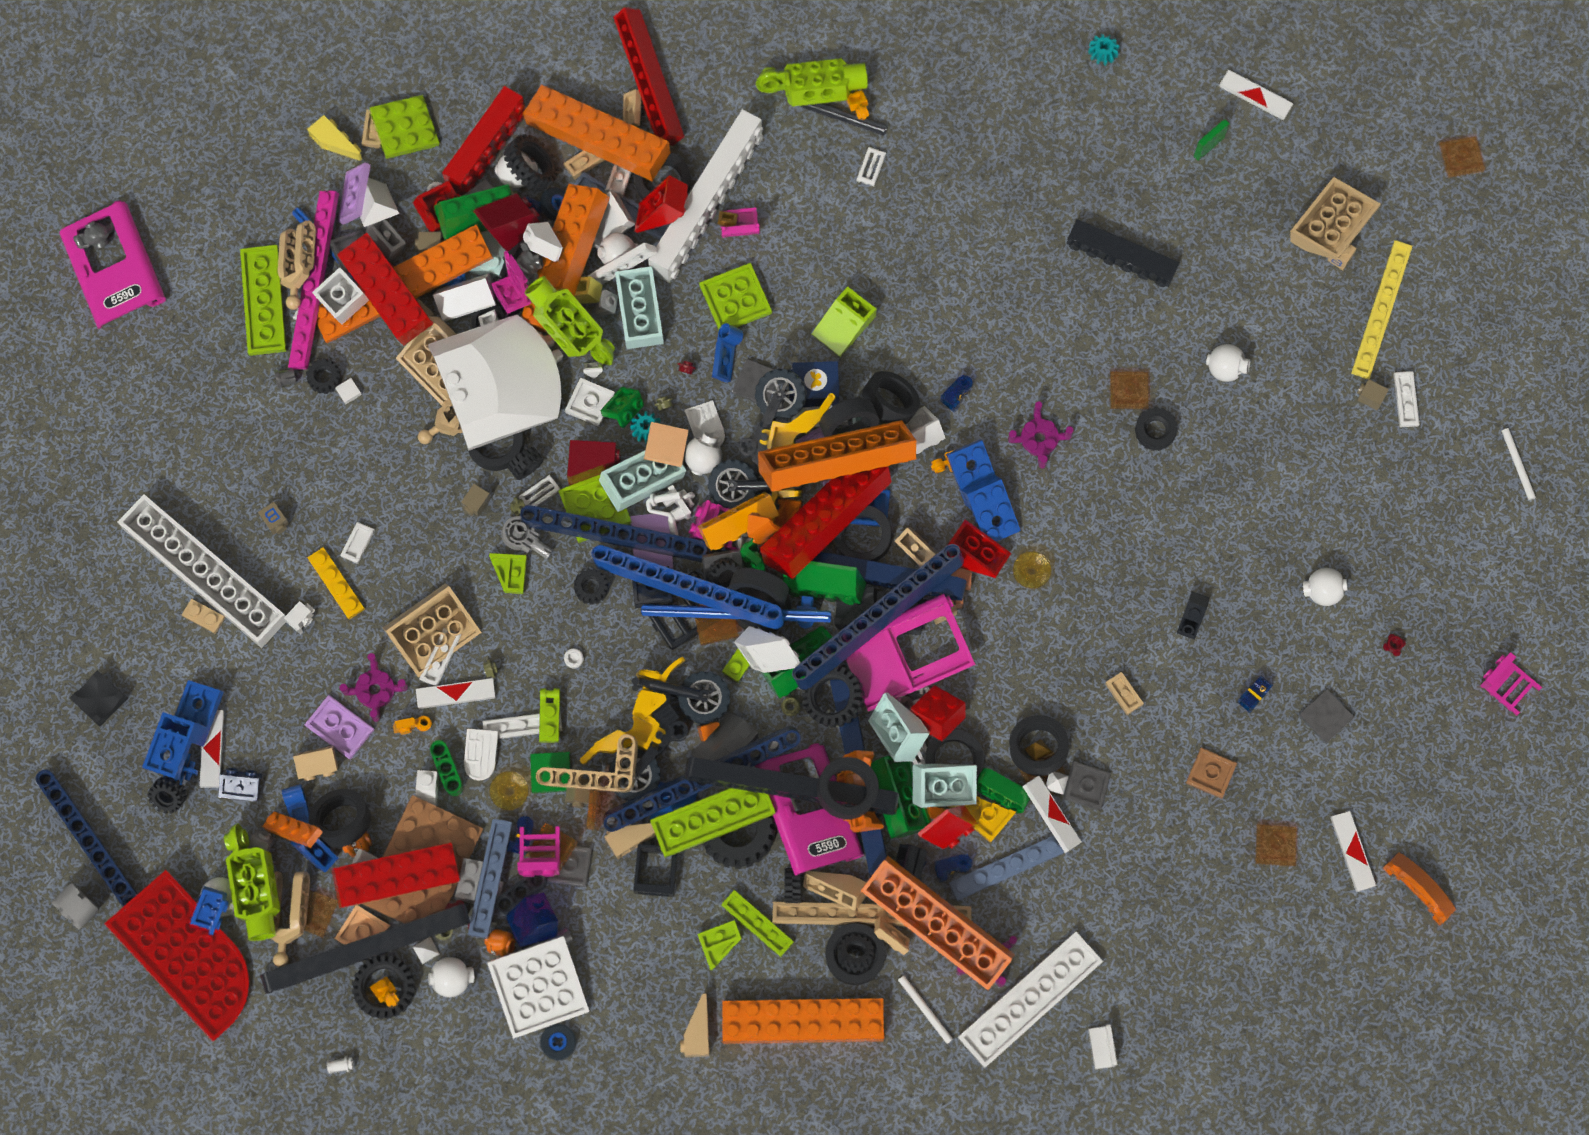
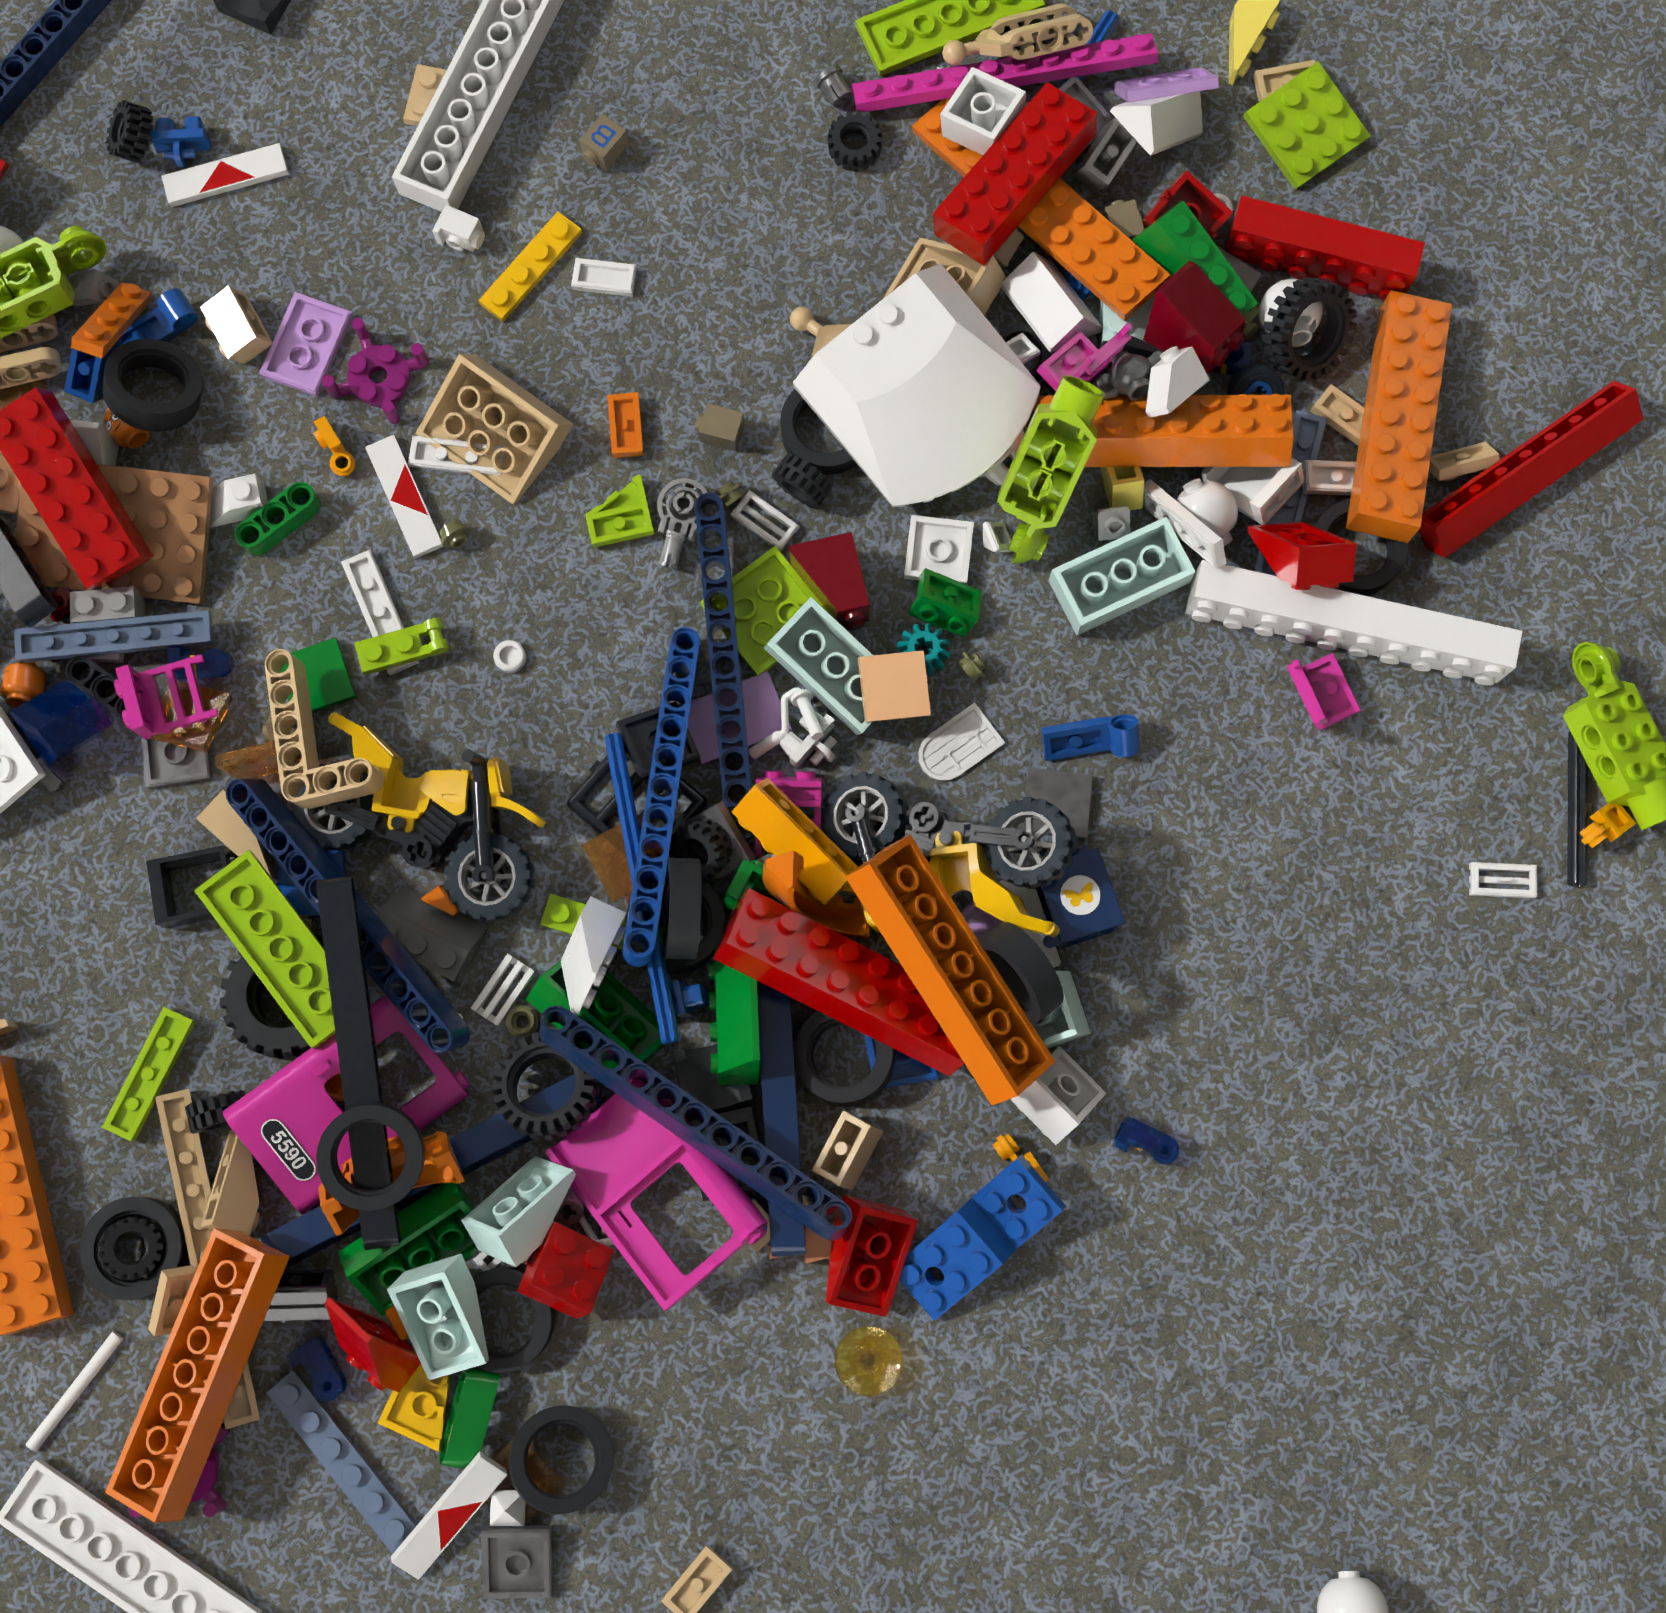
camera: 75 degrees right, 5 degrees up
(183, 729) = (230, 118): blue bracket -> none
(239, 784) = (178, 230): bracket -> none
(348, 391) = (843, 185): white tile -> none
(455, 554) = (625, 425): none -> orange plate
(480, 753) = (317, 562): white window -> none
(506, 781) = (256, 612): clear yellow dish -> none
(587, 575) = (621, 630): black tyre -> none
(686, 367) = (1045, 683): dark red plate -> none
(703, 454) = (901, 752): white brick -> none
(718, 942) = (105, 1021): lime wing -> none
(727, 219) = (1321, 669): pearl gold slope -> none
(735, 297) = (1193, 725): lime plate -> none
(772, 716) = (487, 1013): none -> white tile
(844, 321) = (1208, 915): lime slope -> none
(898, 386) = (1123, 1040): black tyre -> none
(1037, 750) = (557, 1459): pearl gold slope -> none
(1044, 427) = (1132, 1311): magenta plate -> none
(1123, 253) = (1495, 1364): black brick -> none
(1129, 390) = (1247, 1442): clear orange tile -> none
(1163, 416) = (1217, 1505): black tyre -> none

